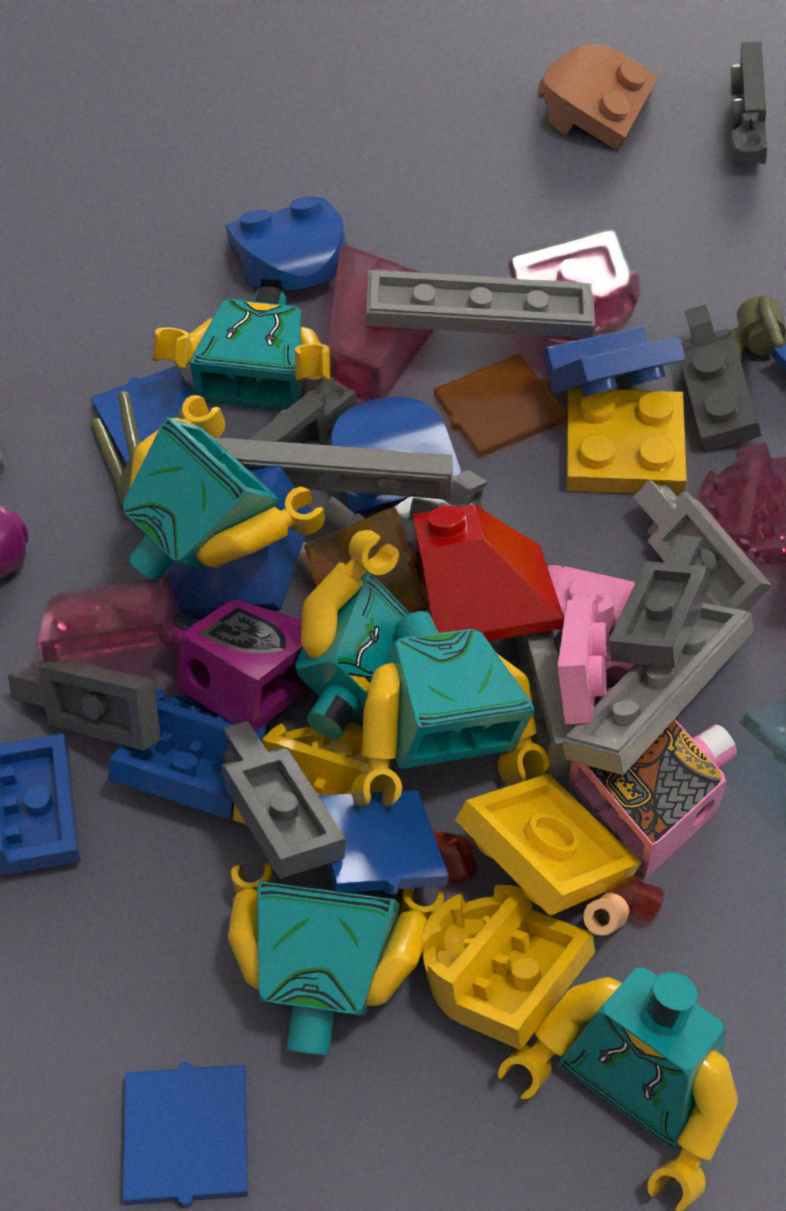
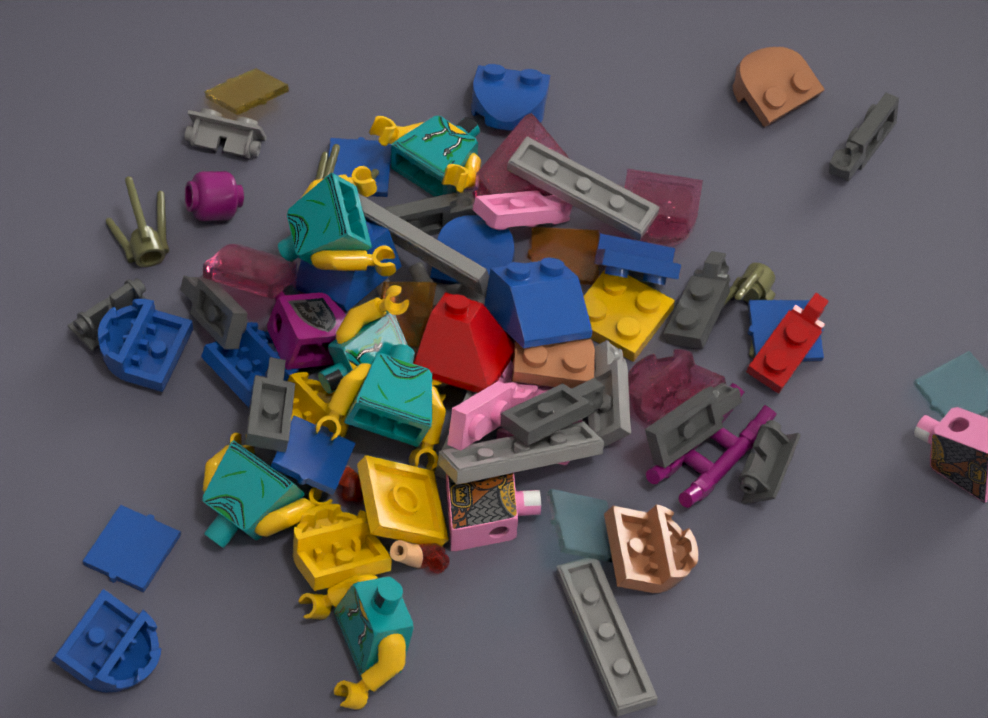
camera: 25 degrees right, 0 degrees up
(415, 368) = (521, 209): none -> bright pink hinge
(537, 471) = (538, 302): none -> blue slope
(599, 537) = (554, 363): none -> nougat slope

